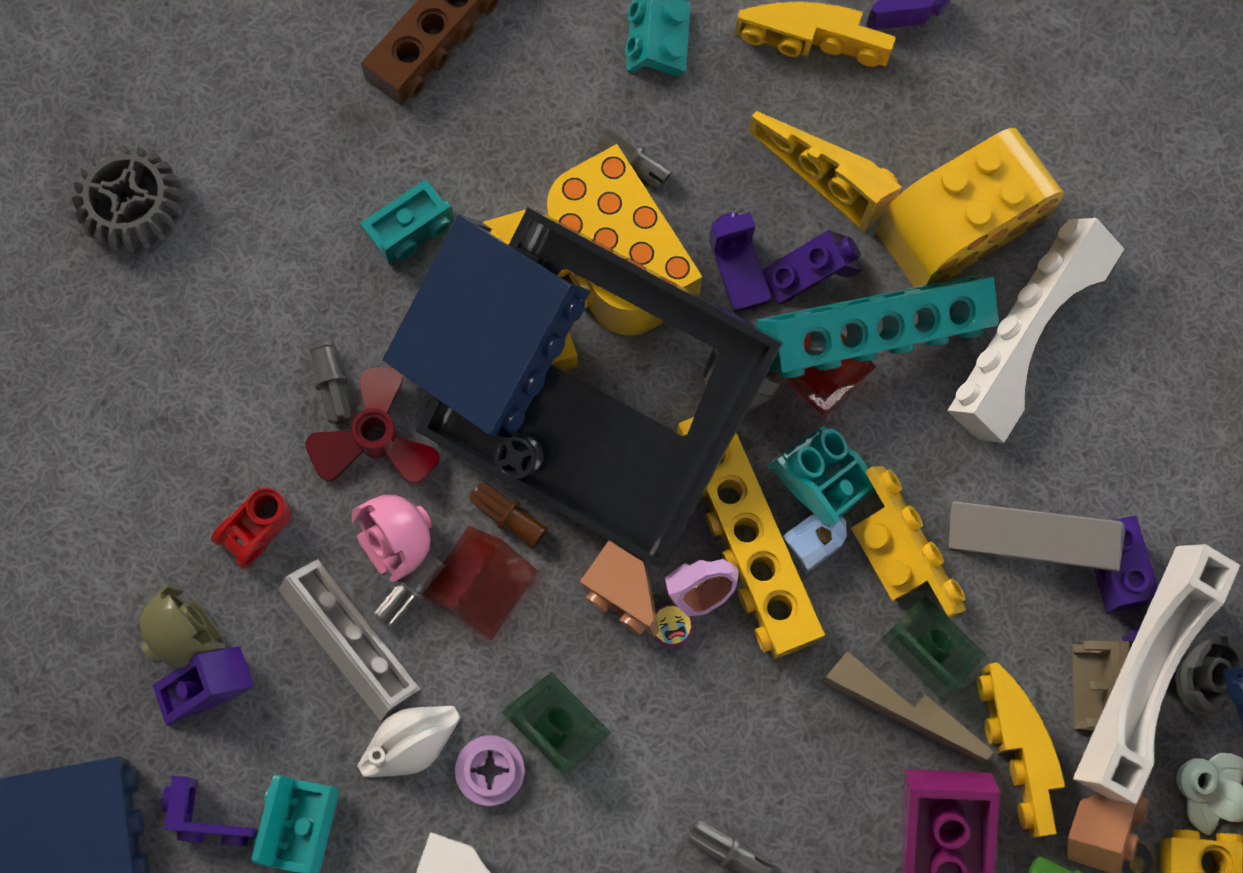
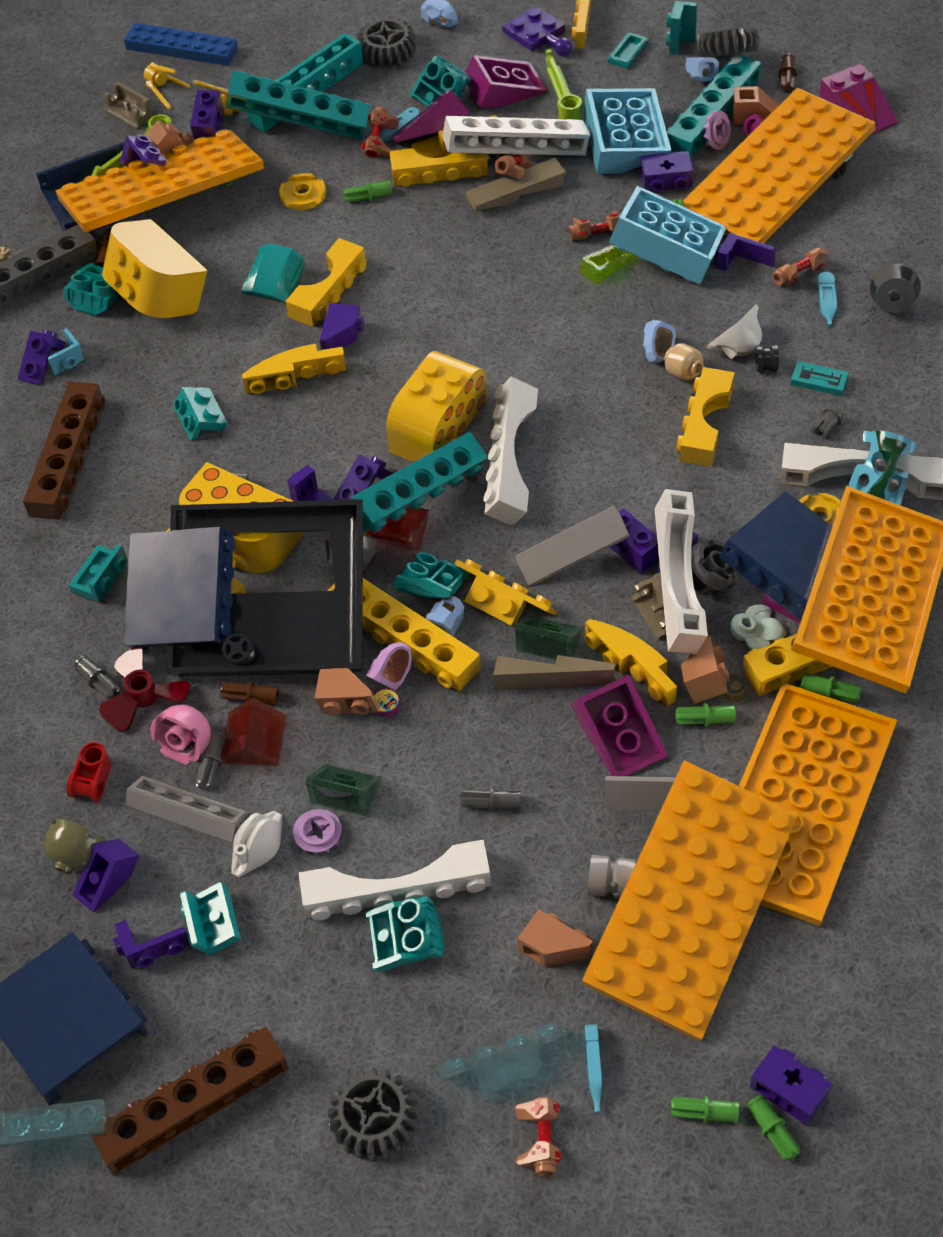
camera: 20 degrees left, 20 degrees down
(841, 177) = (345, 430): yellow wedge -> none

